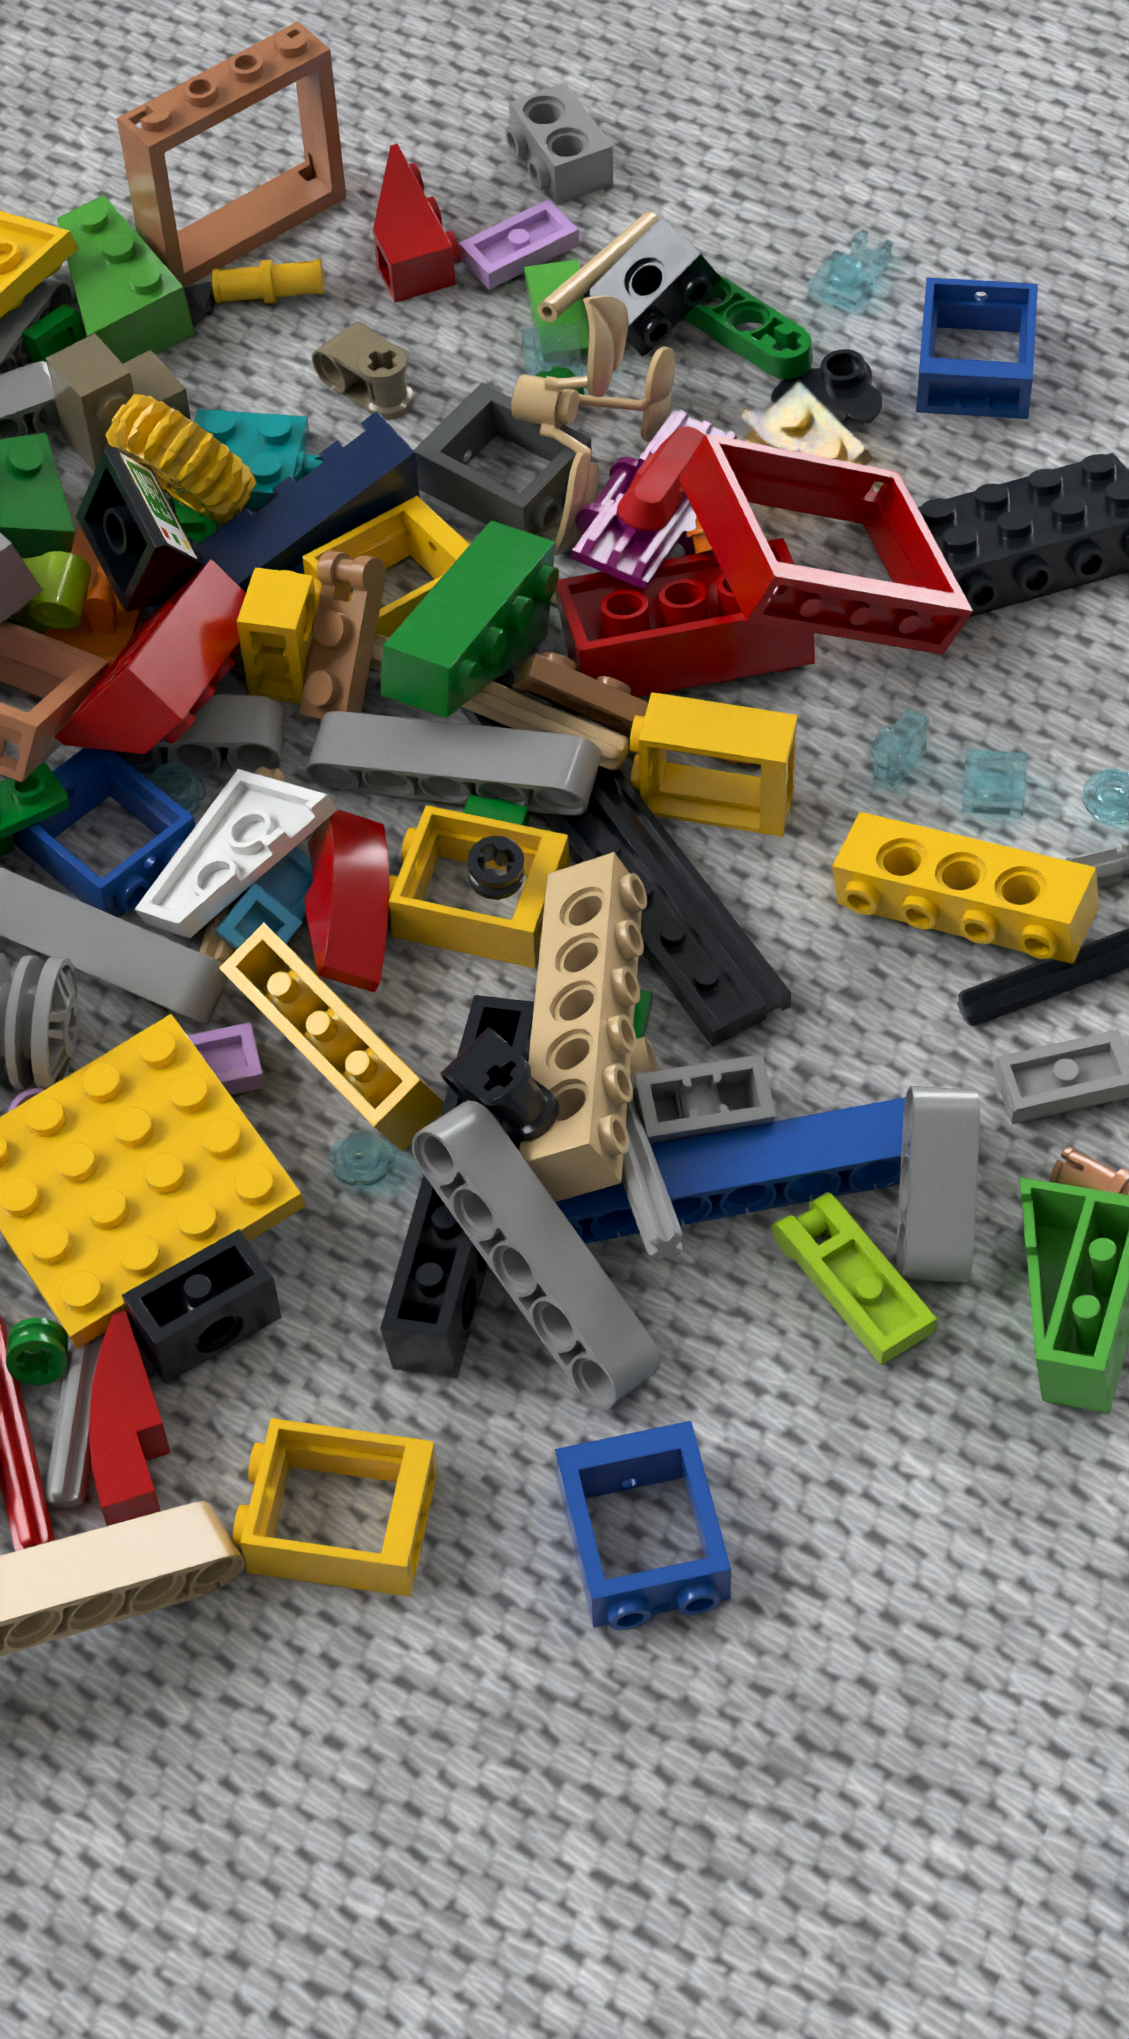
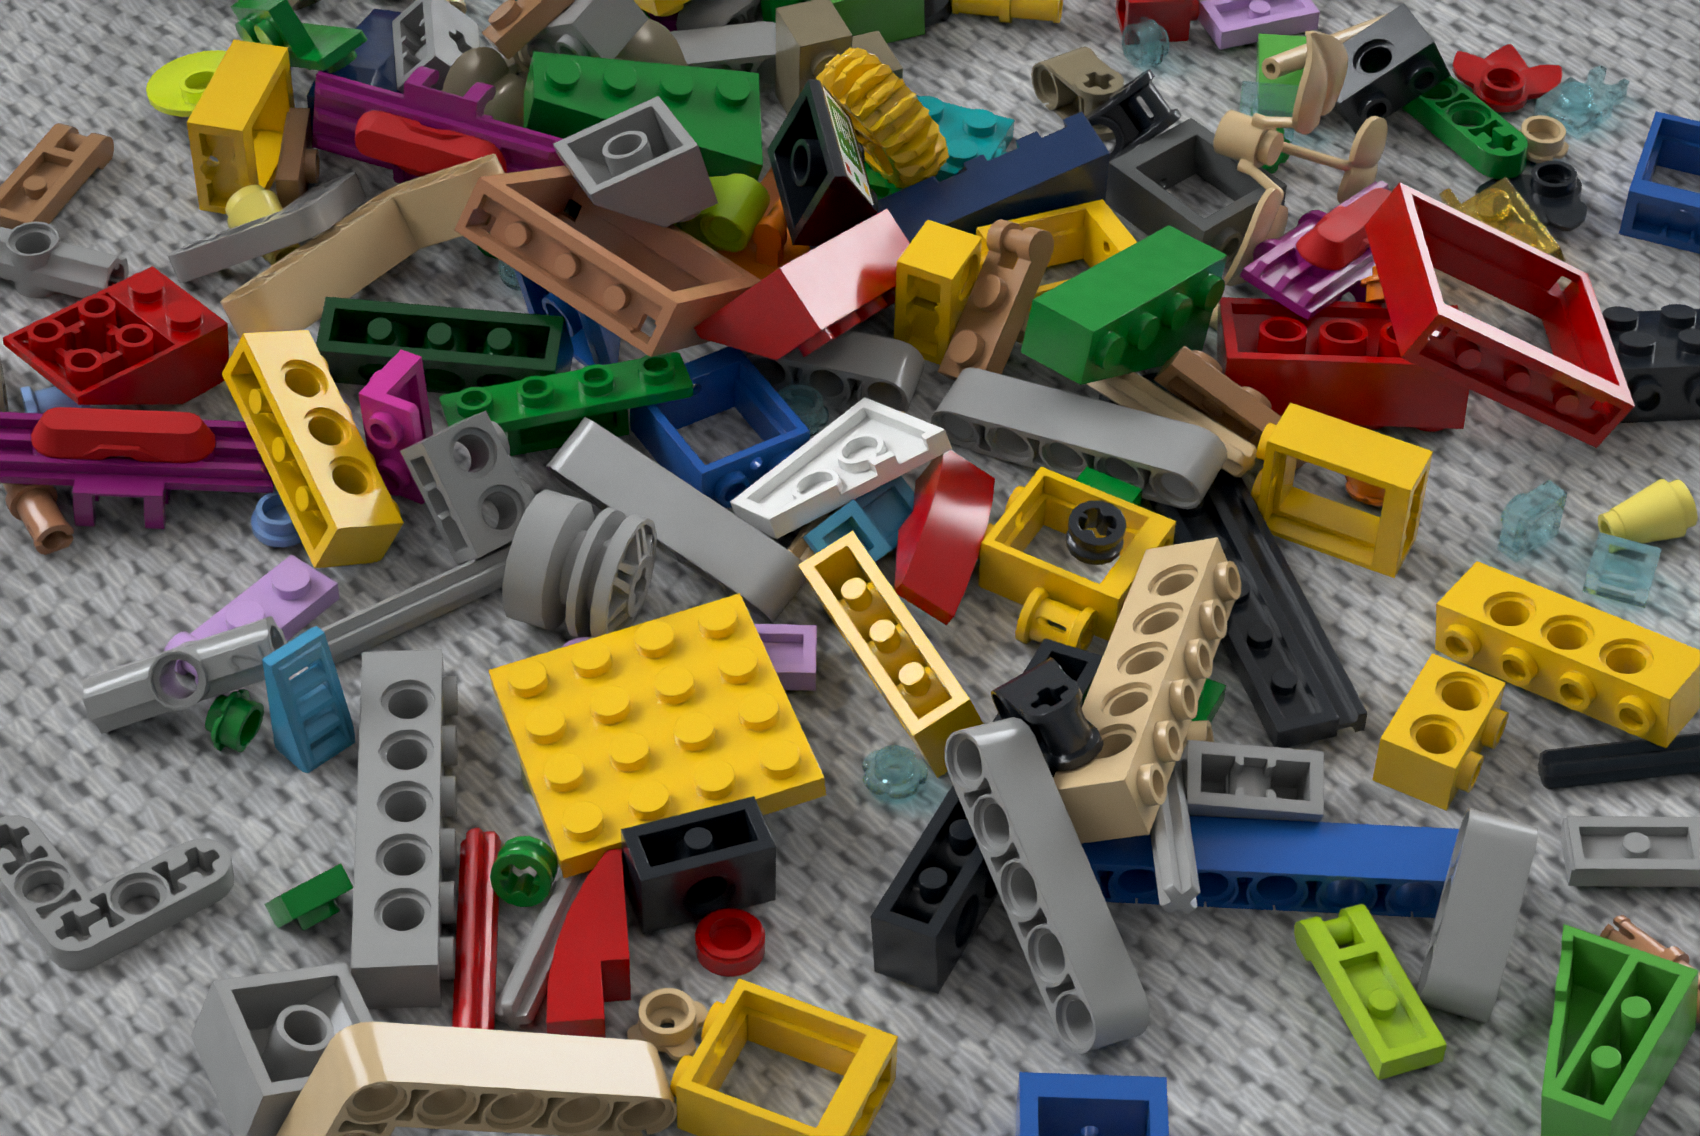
camera: 10 degrees right, 10 degrees down
(210, 1454) = (673, 1007): none -> tan plate
(249, 1372) = (730, 942): none -> red tile
(415, 300) = (1145, 43): none -> clear light blue plate
(420, 397) = (1127, 117): none -> black piece
(478, 966) = (1040, 608): none -> yellow bush
(771, 263) = (1504, 78): none -> red plate
(825, 324) = (1544, 138): none -> tan plate
(856, 995) = (1440, 731): none -> yellow brick
(1009, 717) = (1652, 514): none -> light yellow cone

